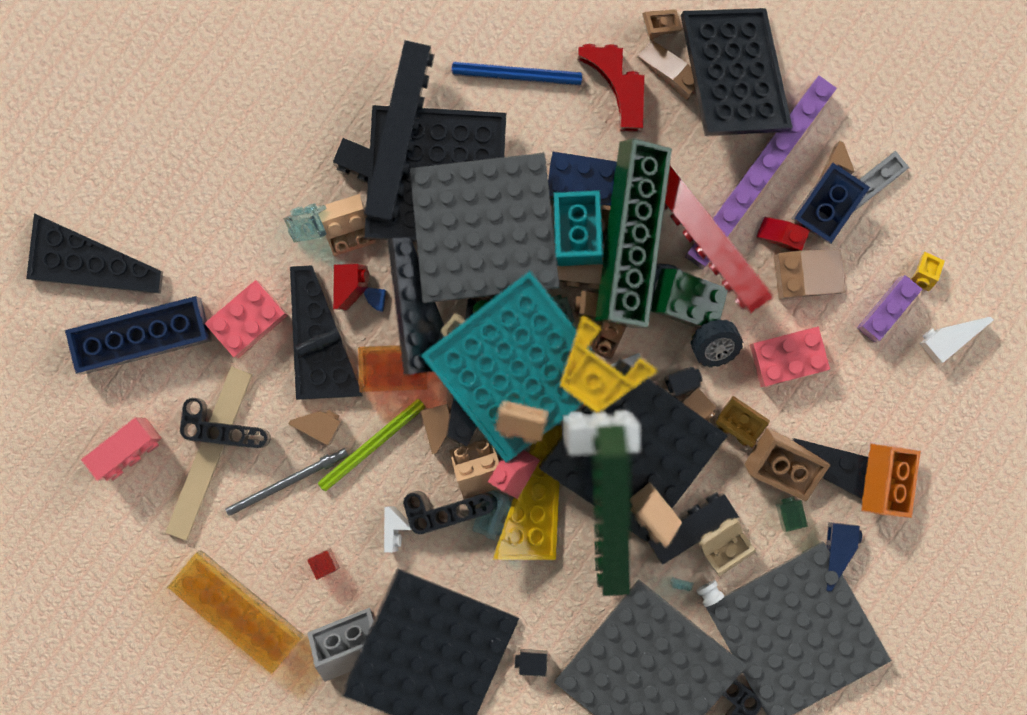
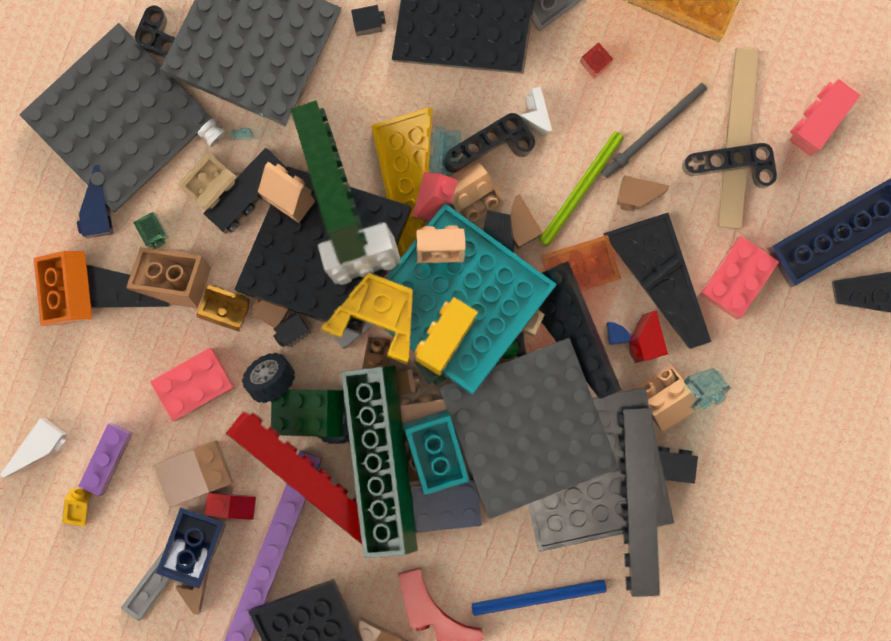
camera: 165 degrees right, 0 degrees up
(540, 332) = (445, 335): none -> yellow brick

